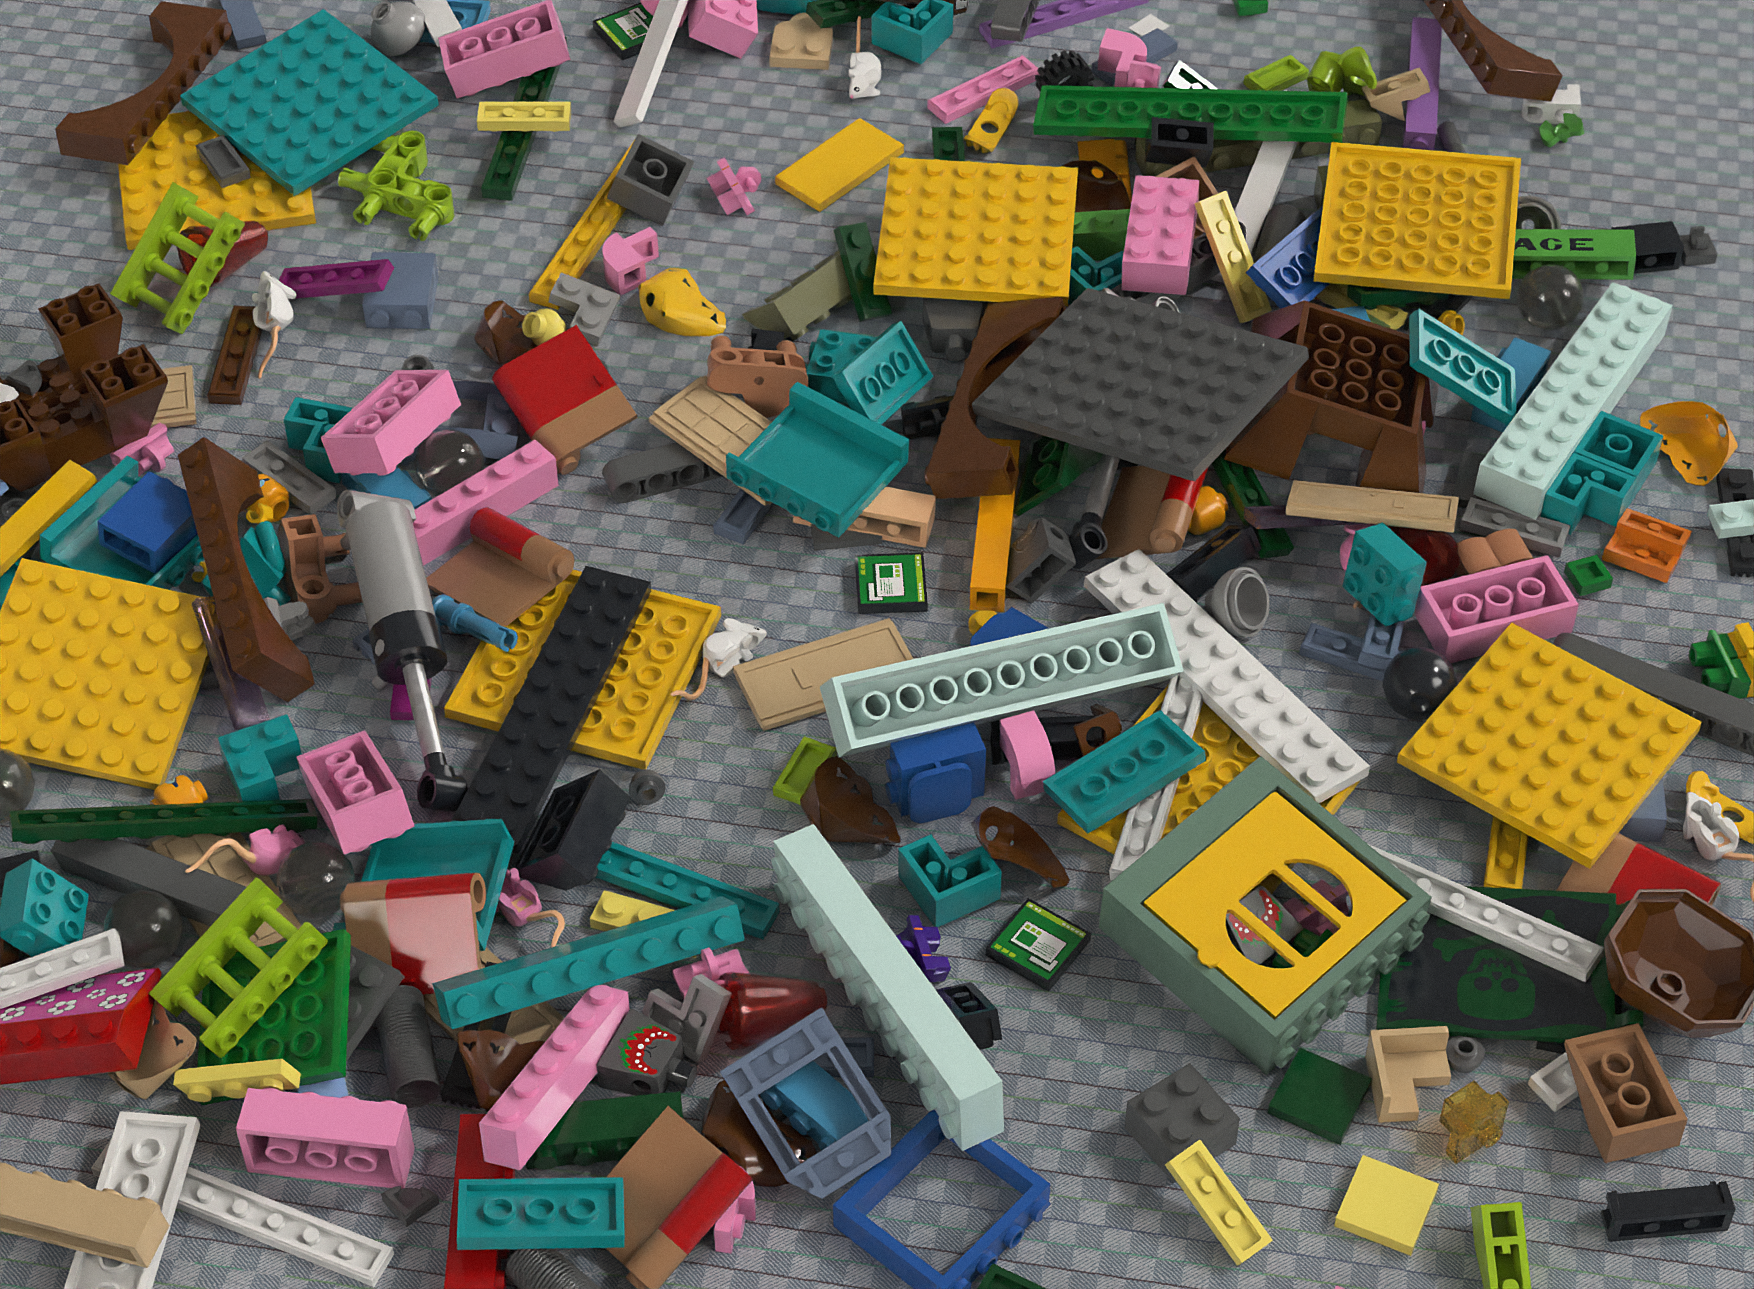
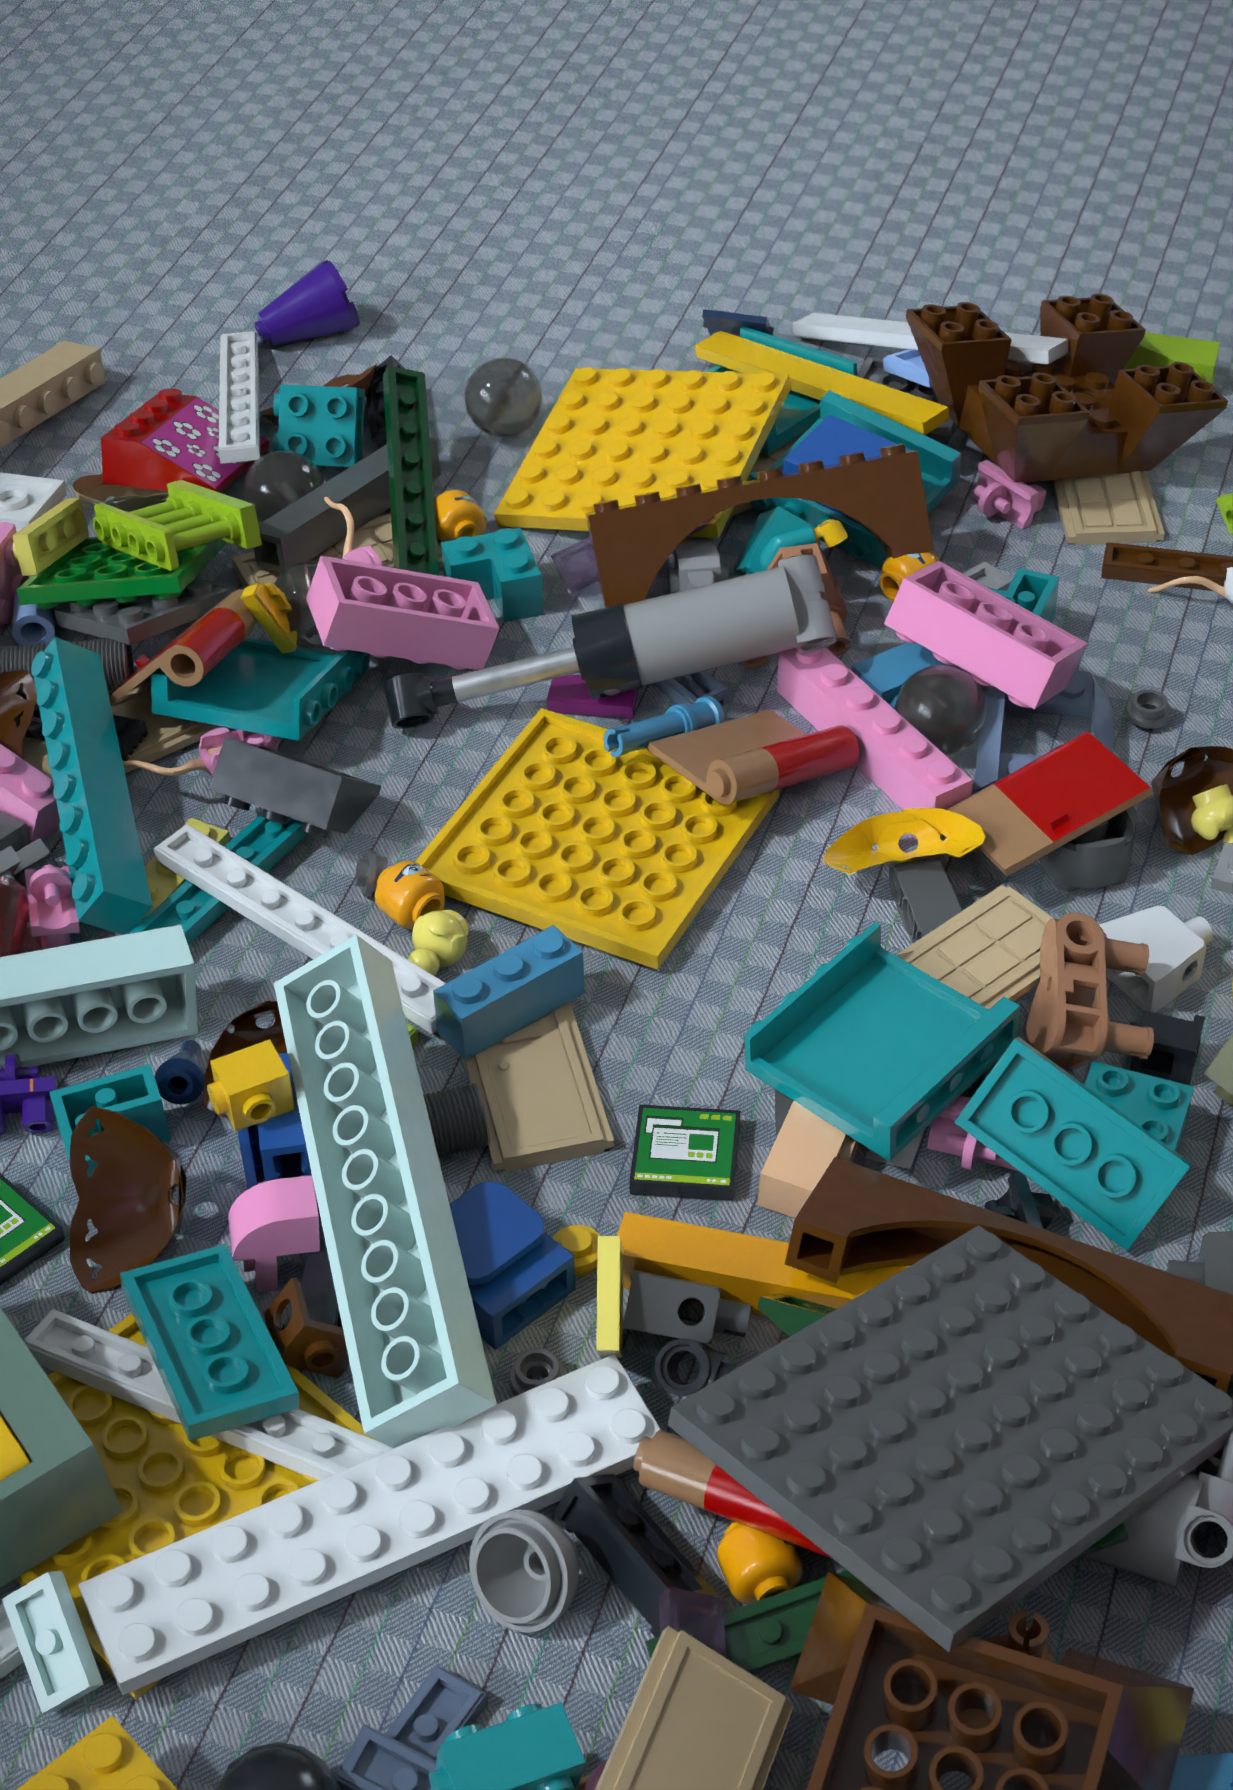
camera: 100 degrees right, 5 degrees down
(25, 378) = (1086, 376): dark grey tile -> none
(366, 872) = (270, 608): none -> yellow tile
(554, 702) = (521, 791): black plate -> none
(600, 473) = (856, 850): none -> yellow piece
(675, 754) = (408, 892): none -> light orange head
(678, 359) = (1174, 954): none -> white torso
(716, 811) = (286, 912): none -> white tile
(717, 733) = (438, 940): none -> light yellow animal
(725, 650) = (600, 961): white animal -> none
(779, 669) = (509, 992): none -> dark azure brick
(878, 853) = (181, 1076): none -> dark blue cone
(945, 747) = (251, 1085): none -> yellow brick
(1051, 574) = (610, 1296): none -> light yellow tile
(1354, 807) = (52, 1641): none -> light aqua plate

